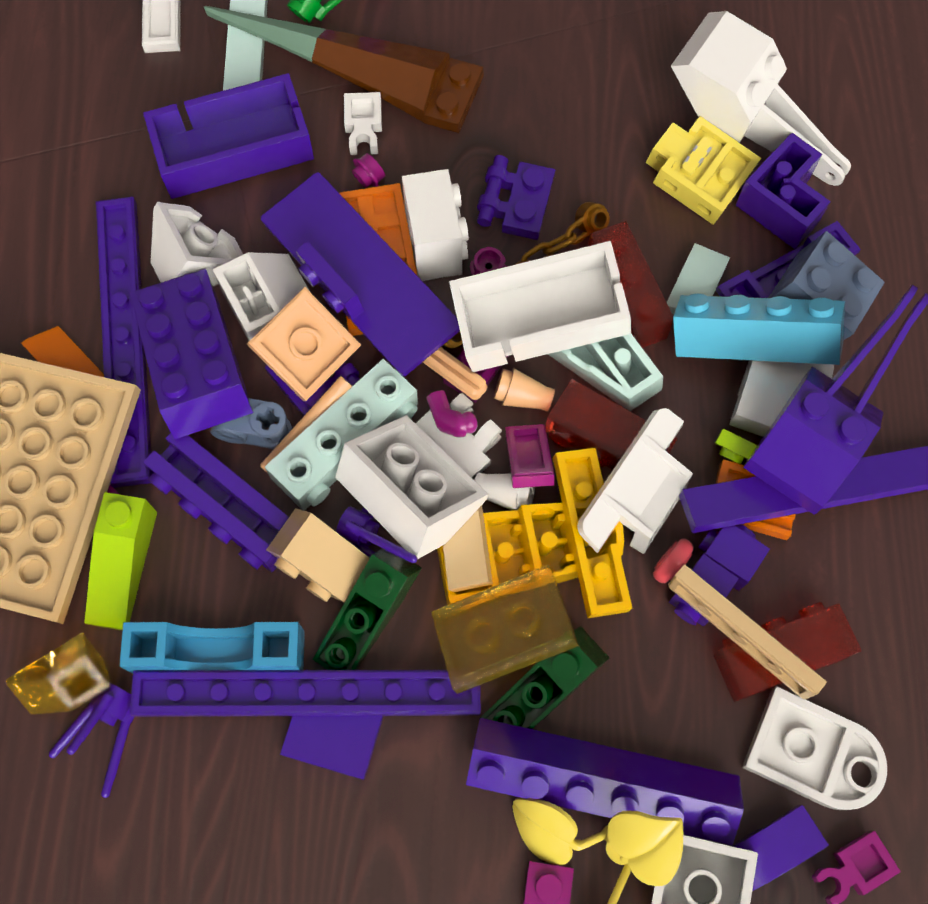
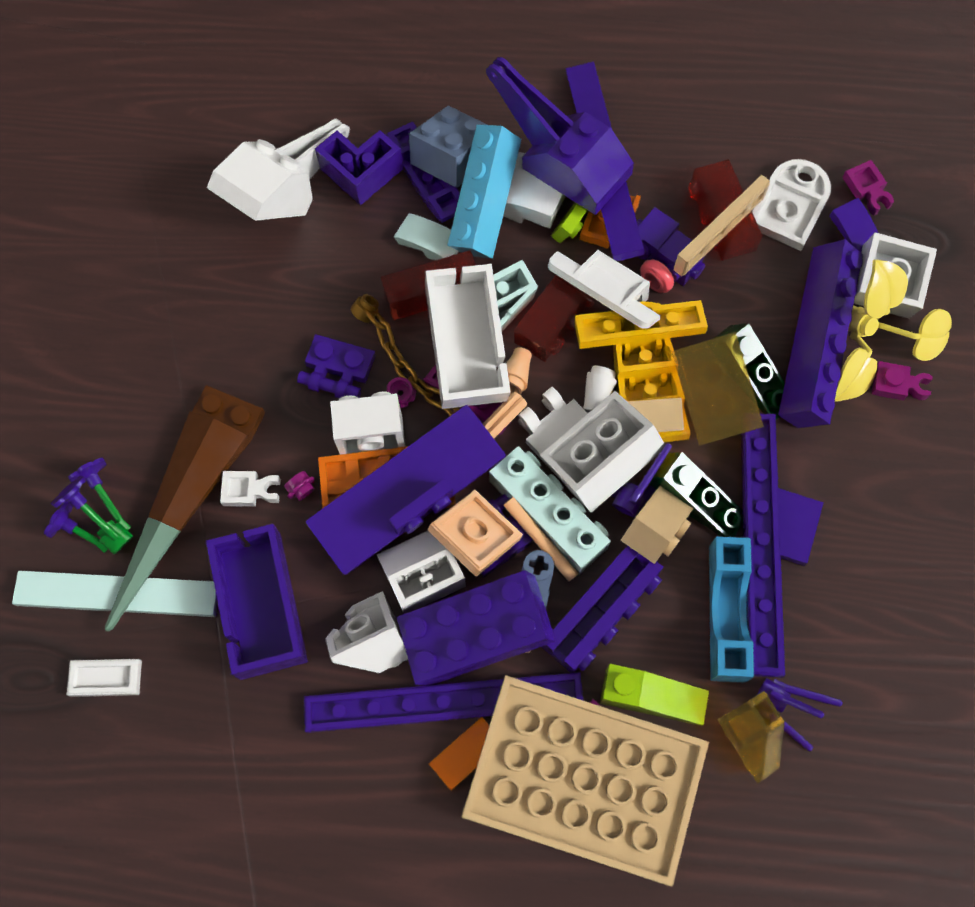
camera: 85 degrees left, 0 degrees up
(449, 420) = (544, 424): magenta arm -> none
(529, 456) = (574, 367): magenta tile -> none
(701, 167) = (327, 223): light yellow piece -> none

